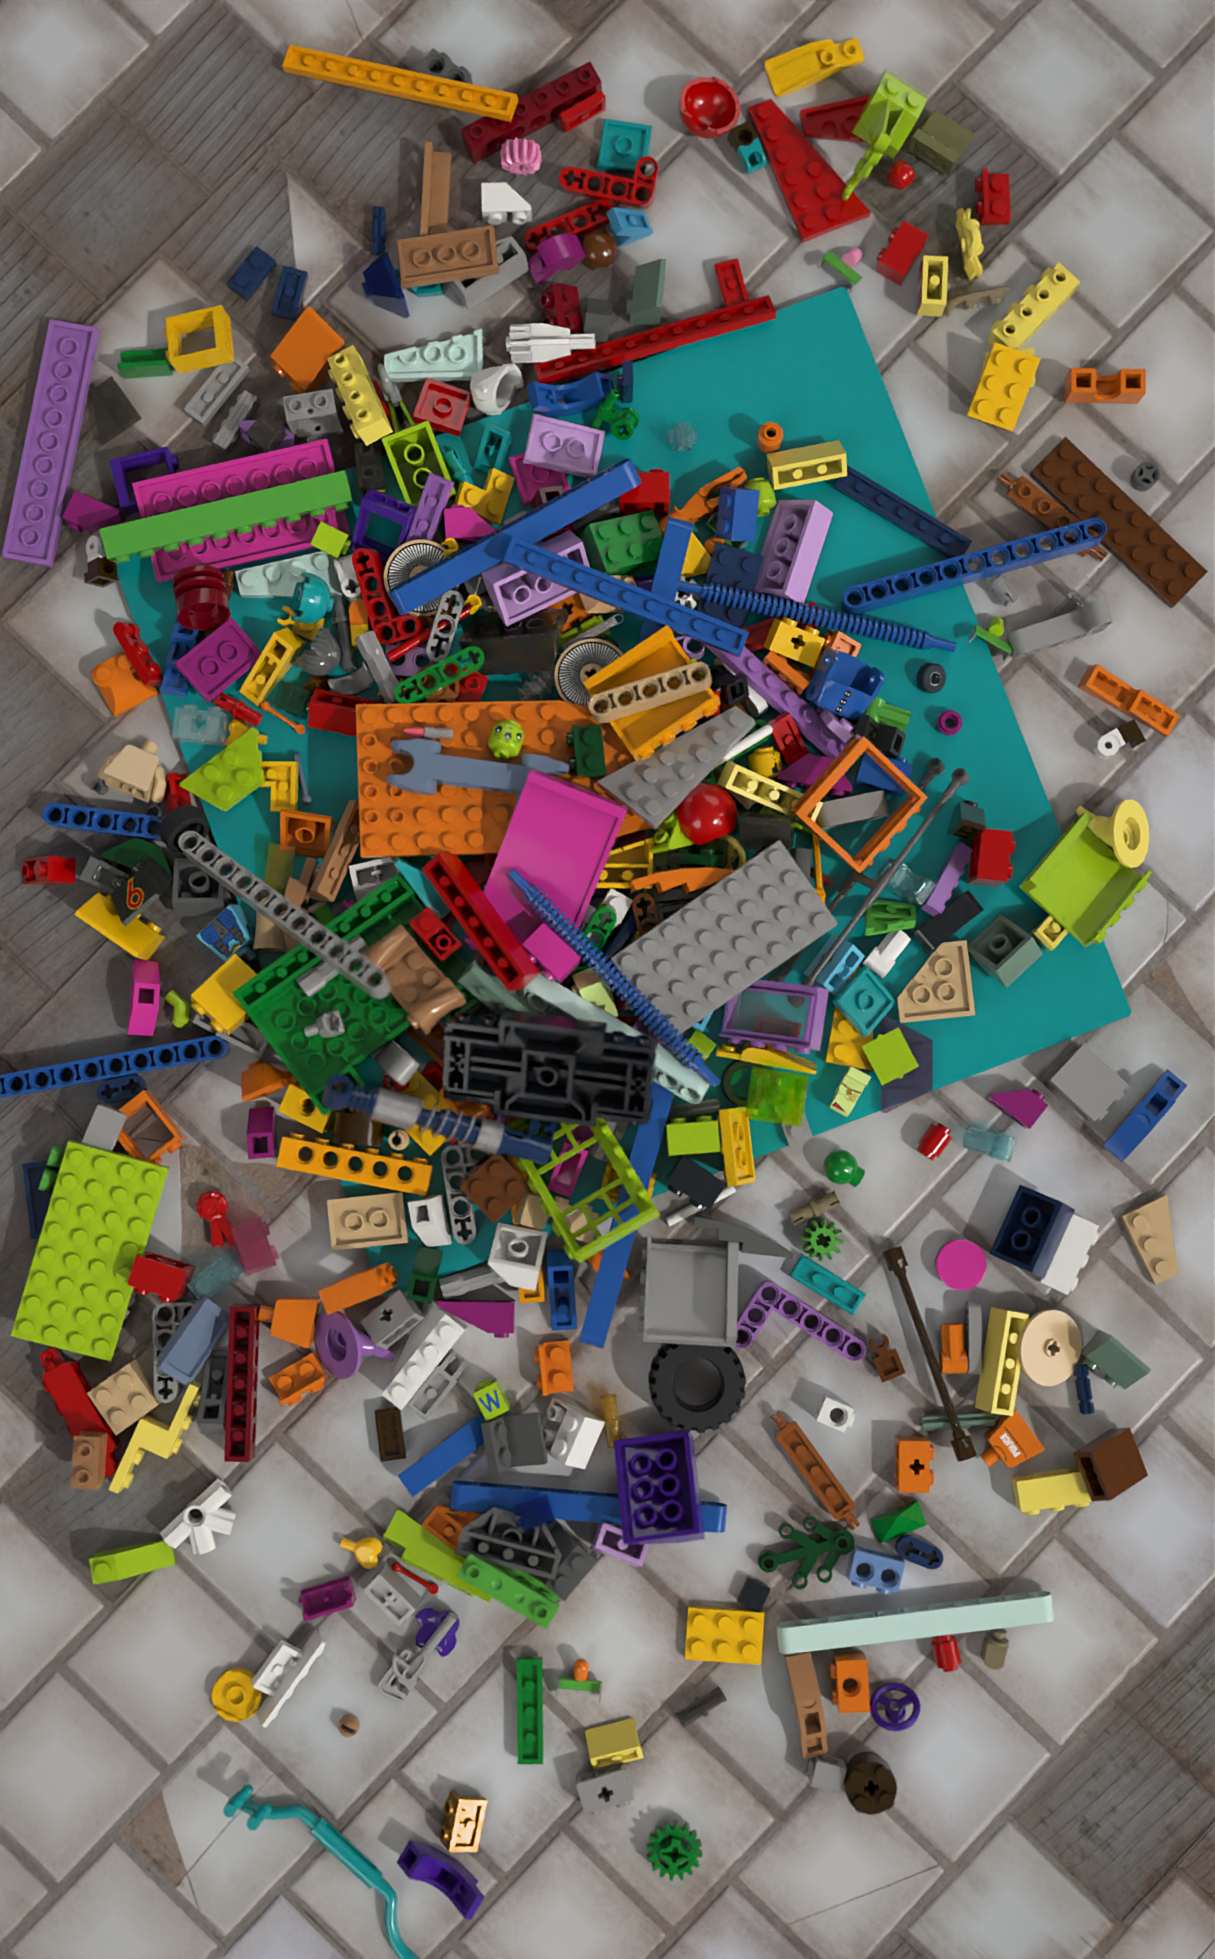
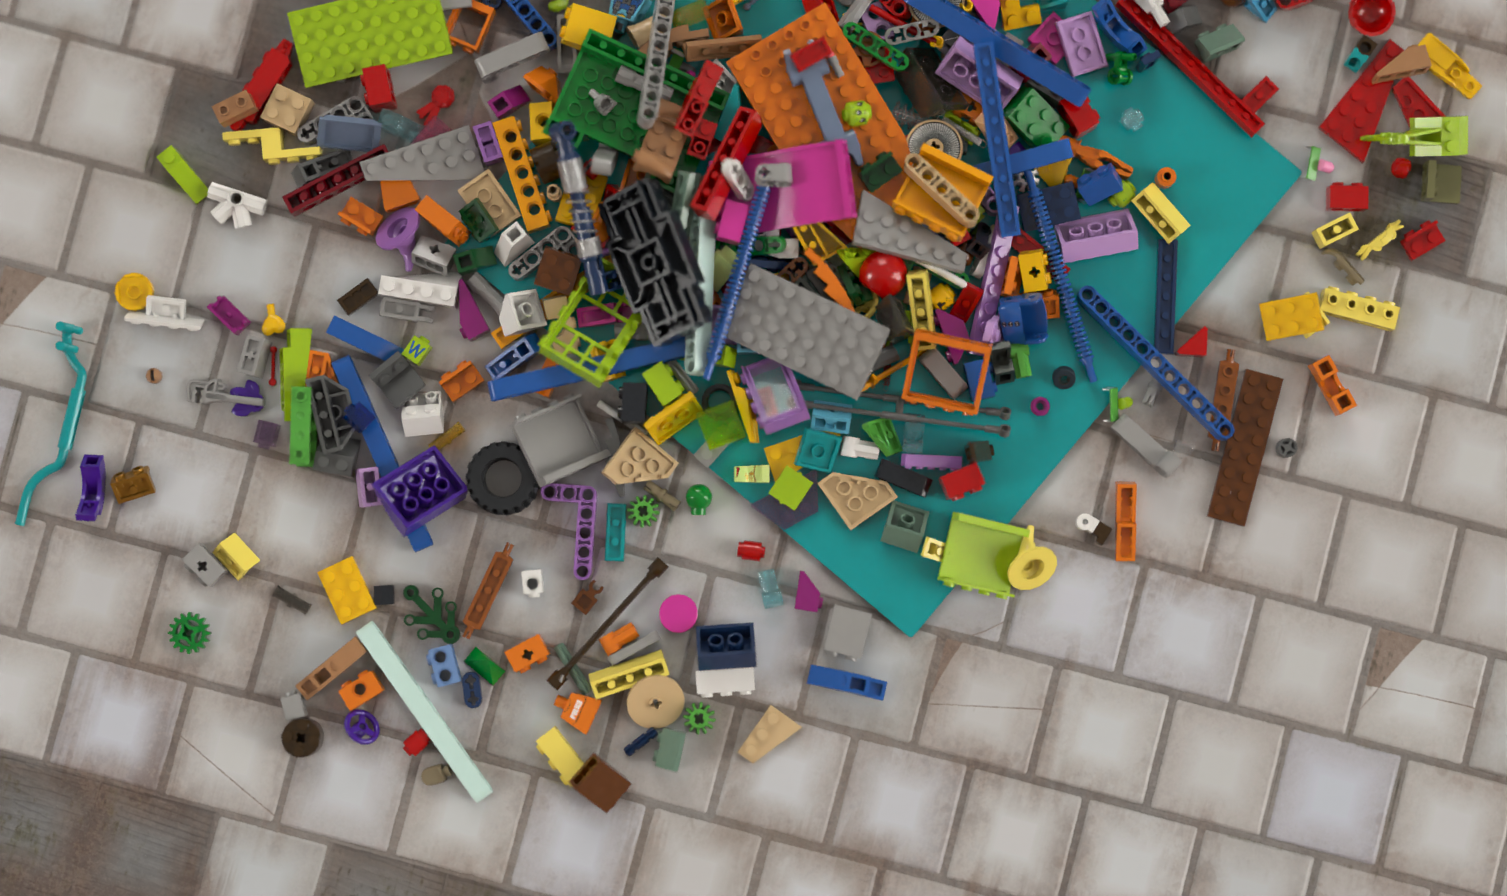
camera: 65 degrees right, 0 degrees up
(211, 1101) = (510, 56): none -> light grey beam
(281, 1252) = (436, 158): none -> light grey wing
(297, 1184) = (488, 143): none -> medium lavender brick
(381, 1245) = (478, 220): none -> dark green bracket
(385, 913) = (697, 98): none -> red slope
(409, 752) = (811, 54): none -> red tile
(491, 1630) = (266, 434): none -> clear purple brick
(507, 918) = (744, 188): none -> white beam
(527, 870) = (776, 175): none -> light grey piece
(530, 1710) = (228, 488): green plate -> none
(580, 1674) = (265, 510): piece -> none
(763, 1213) = (639, 460): none -> tan plate
(790, 97) = (1408, 63): none -> medium nougat slope
(973, 510) = (1195, 346): none -> red slope
(1084, 1305) = (692, 719): none -> bright green gear

